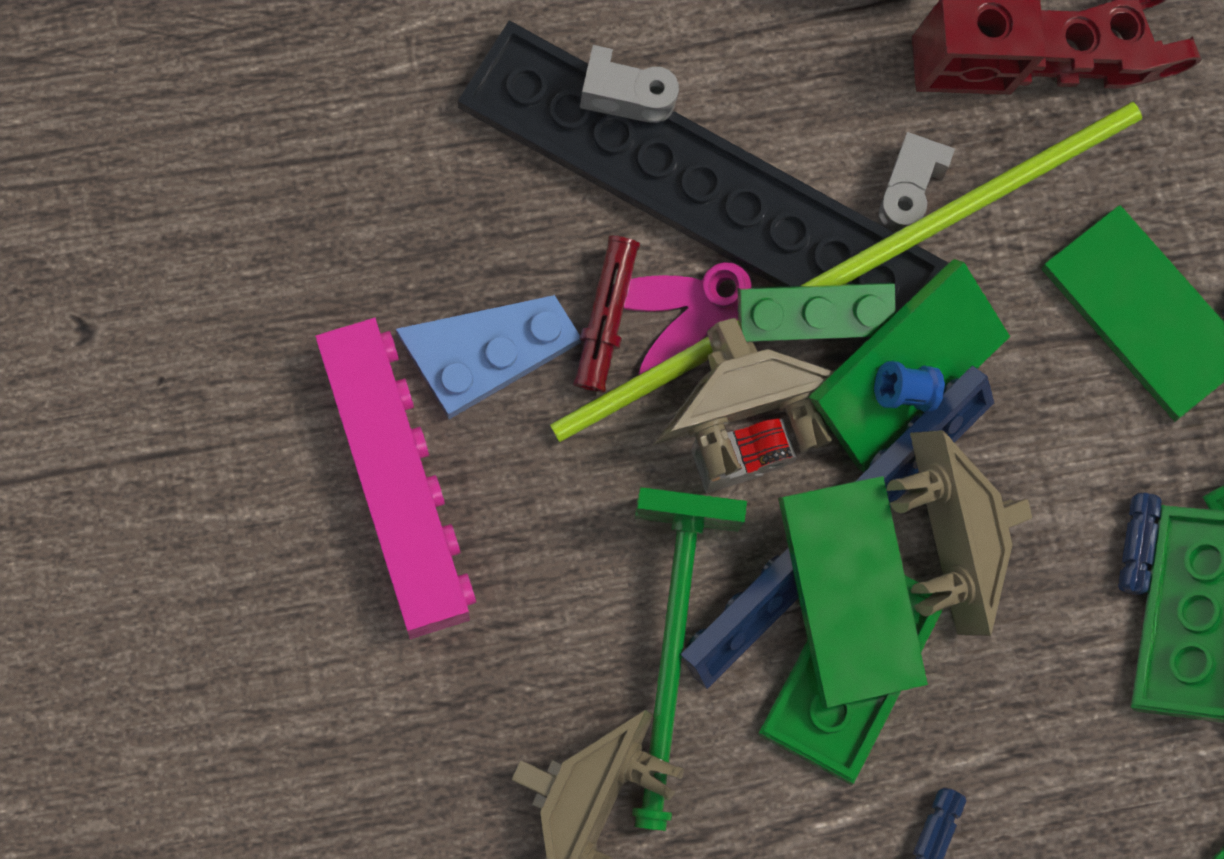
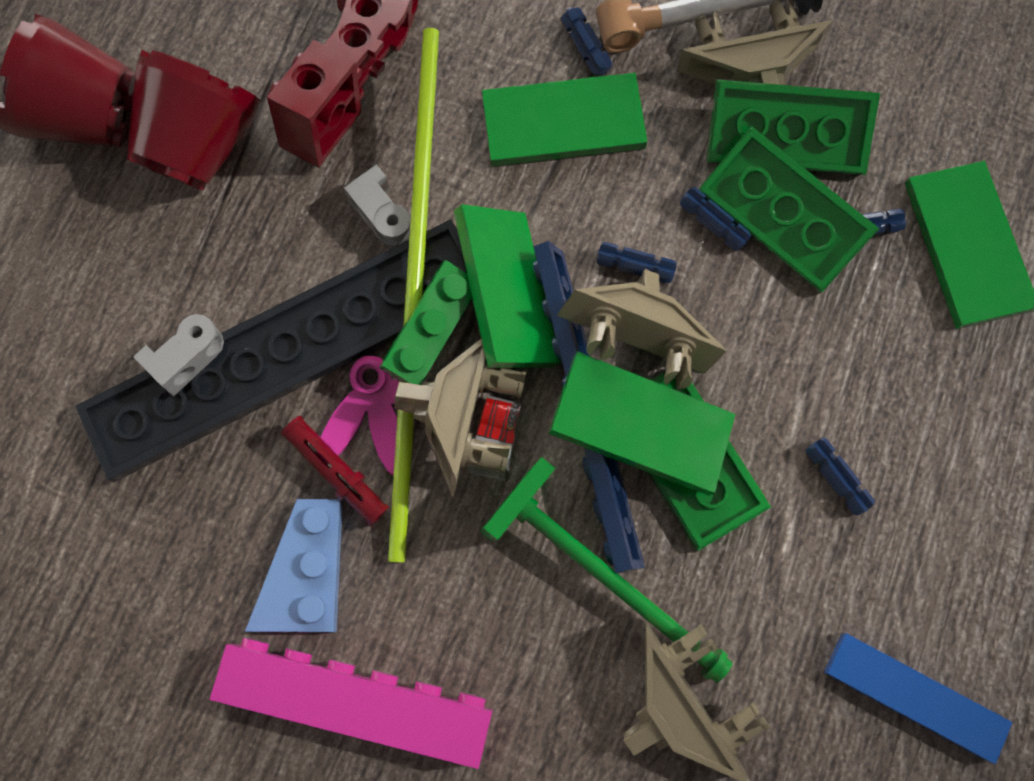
camera: 50 degrees left, 0 degrees up
(909, 386) = (520, 300): blue bush -> none
(1032, 486) = (635, 261): none -> dark blue axle

